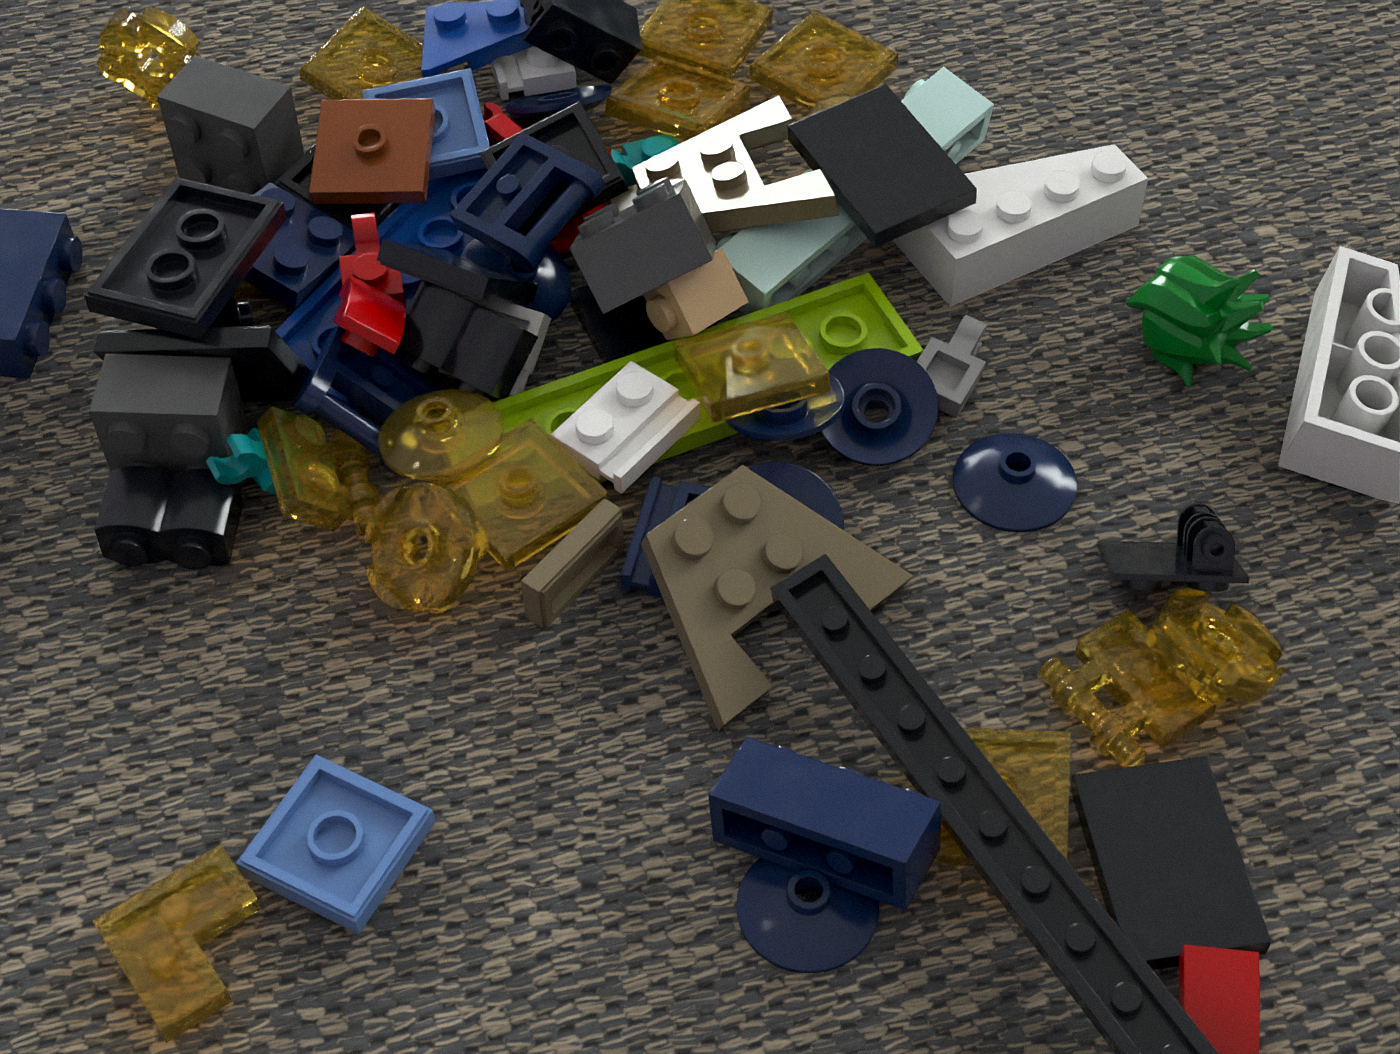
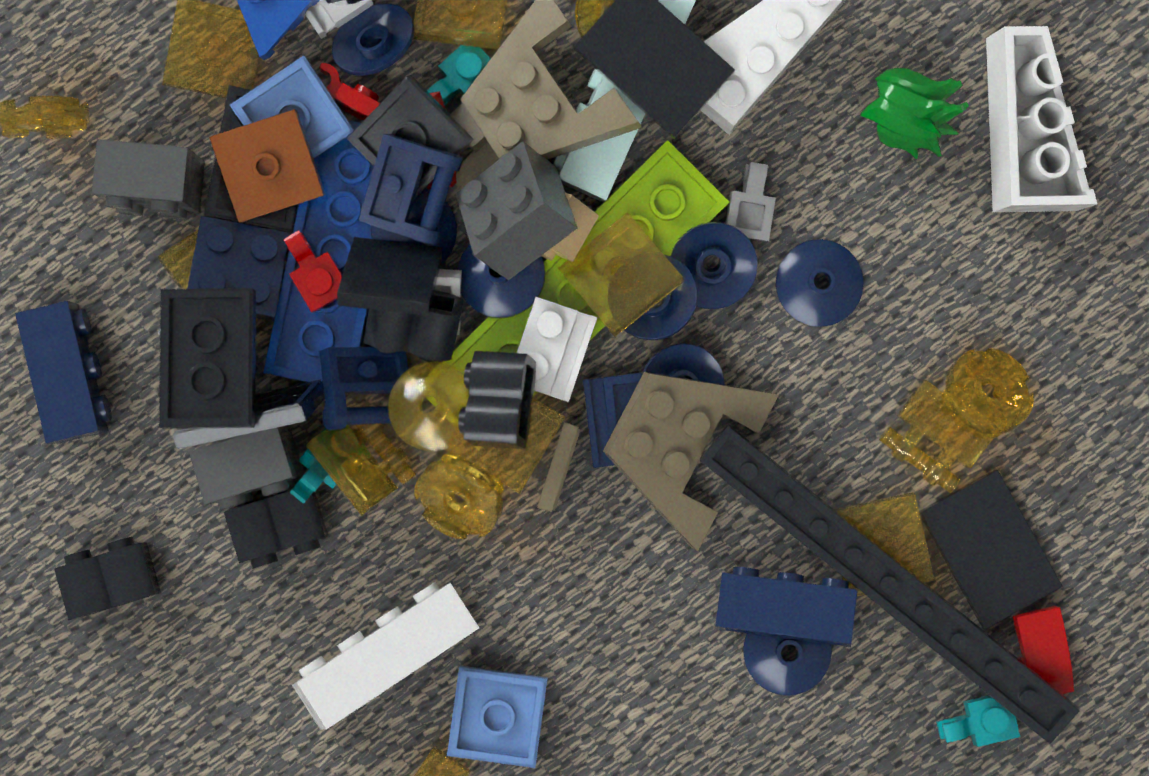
camera: 20 degrees left, 35 degrees up
(213, 699) = (385, 656): none -> white wedge
(369, 317) = (348, 338): red slope -> none
(528, 425) = (498, 399): none -> black brick
(595, 346) = (499, 295): none -> dark blue dish
(1200, 556) = (944, 331): black hinge -> none

